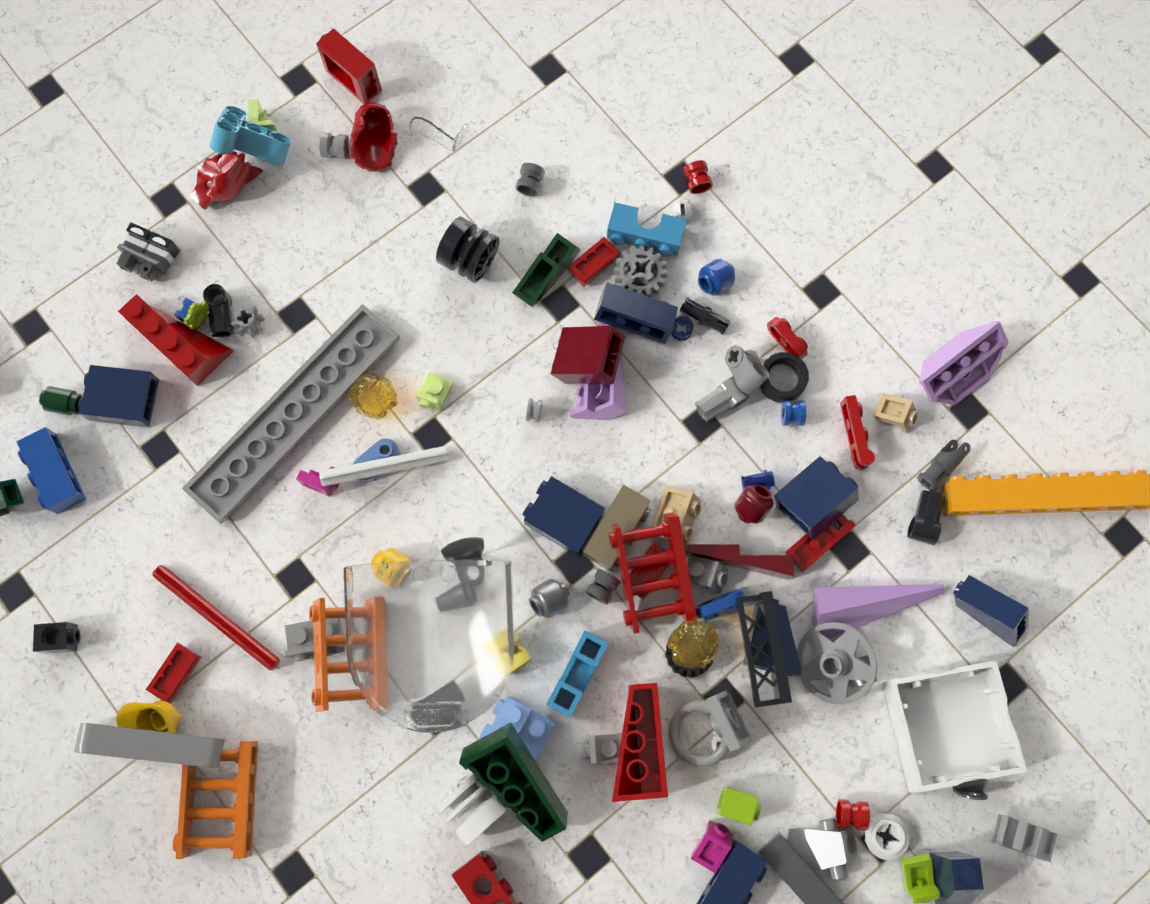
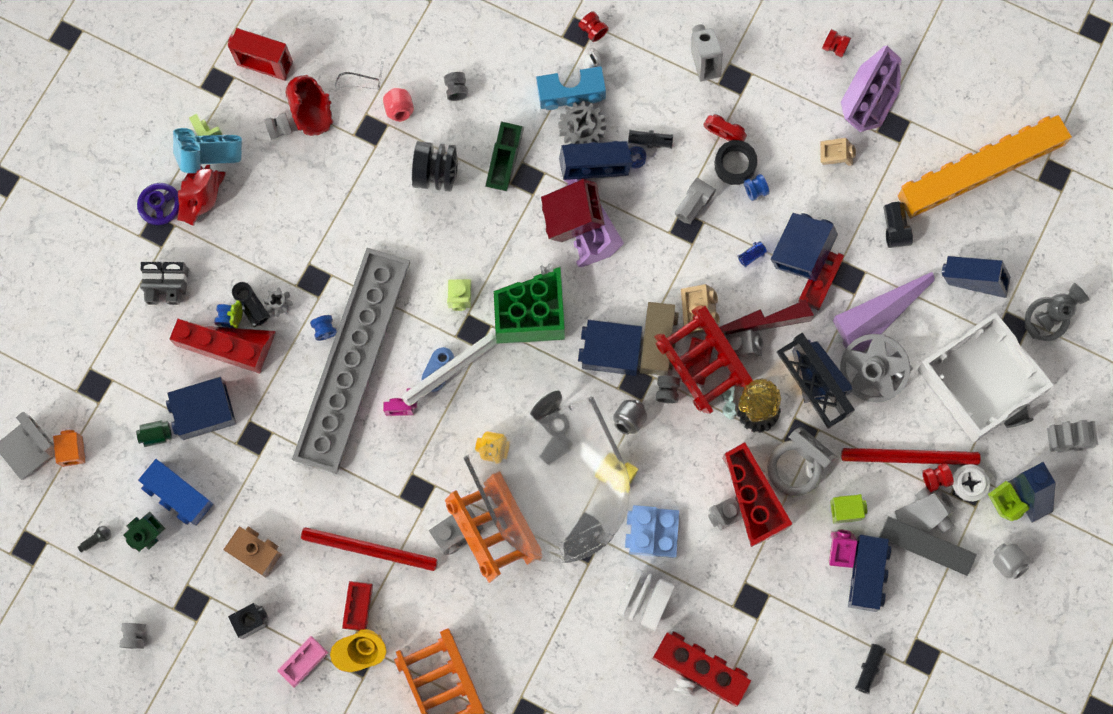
camera: 20 degrees left, 0 degrees up
(89, 706) = (303, 661): none -> bright pink plate
(96, 566) = (252, 551): none -> medium nougat brick
(149, 745) = (331, 674): light grey beam -> none
(175, 164) = (150, 196): none -> dark purple piece
(280, 366) = (323, 327): none -> blue wheel
(373, 395) = (412, 318): clear yellow hair -> none
(463, 173) = (398, 104): none -> coral head
(497, 439) = (530, 310): none -> green wedge
(517, 781) = (664, 559): dark green wedge -> none
(577, 674) = (679, 464): dark azure arch -> none
(593, 261) = (540, 132): red plate -> none
(658, 636) = (729, 407): none -> light aqua piece
(709, 609) = (759, 370): blue plate -> none
(716, 277) = (646, 103): blue head -> none
(746, 368) = (703, 167): light grey piece -> none
(754, 504) = (757, 273): dark red head -> none
(803, 243) = (706, 46): none -> light grey torso
(833, 777) = (910, 456): none -> red axle
(856, 433) = (813, 182): red plate -> none
(943, 464) = (891, 178): dark grey piece -> none
(945, 298) = (836, 43): none -> red wheel
(1069, 686) = (1059, 308): none -> dark grey piece

